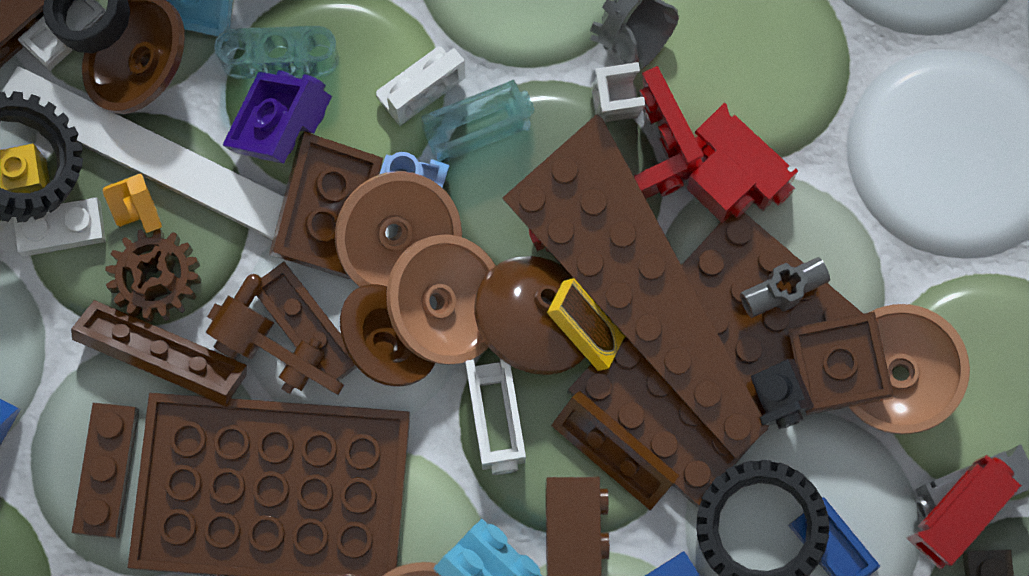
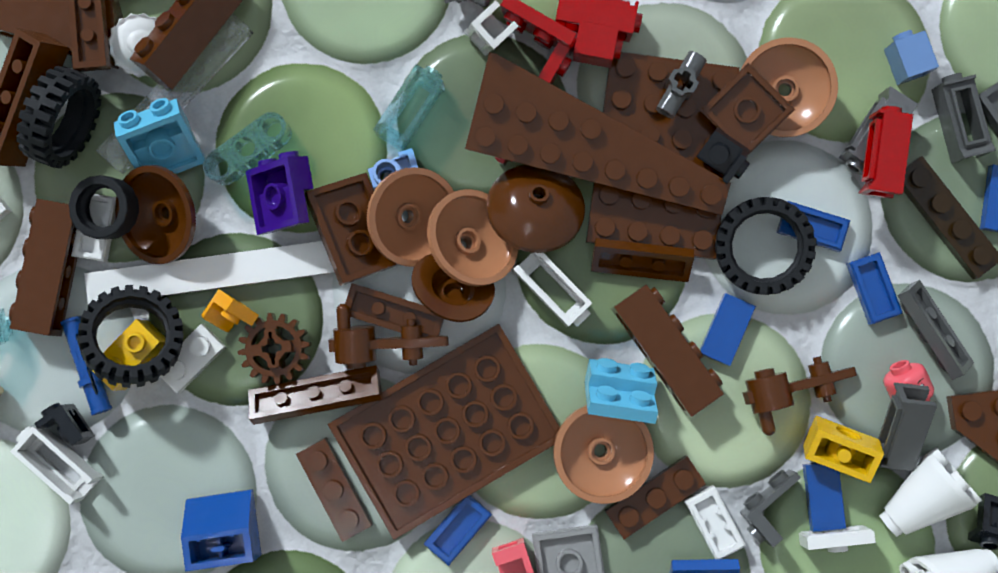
camera: 30 degrees left, 10 degrees up
(422, 84) = (356, 106): white bracket -> none
(585, 324) = (573, 194): tile -> none

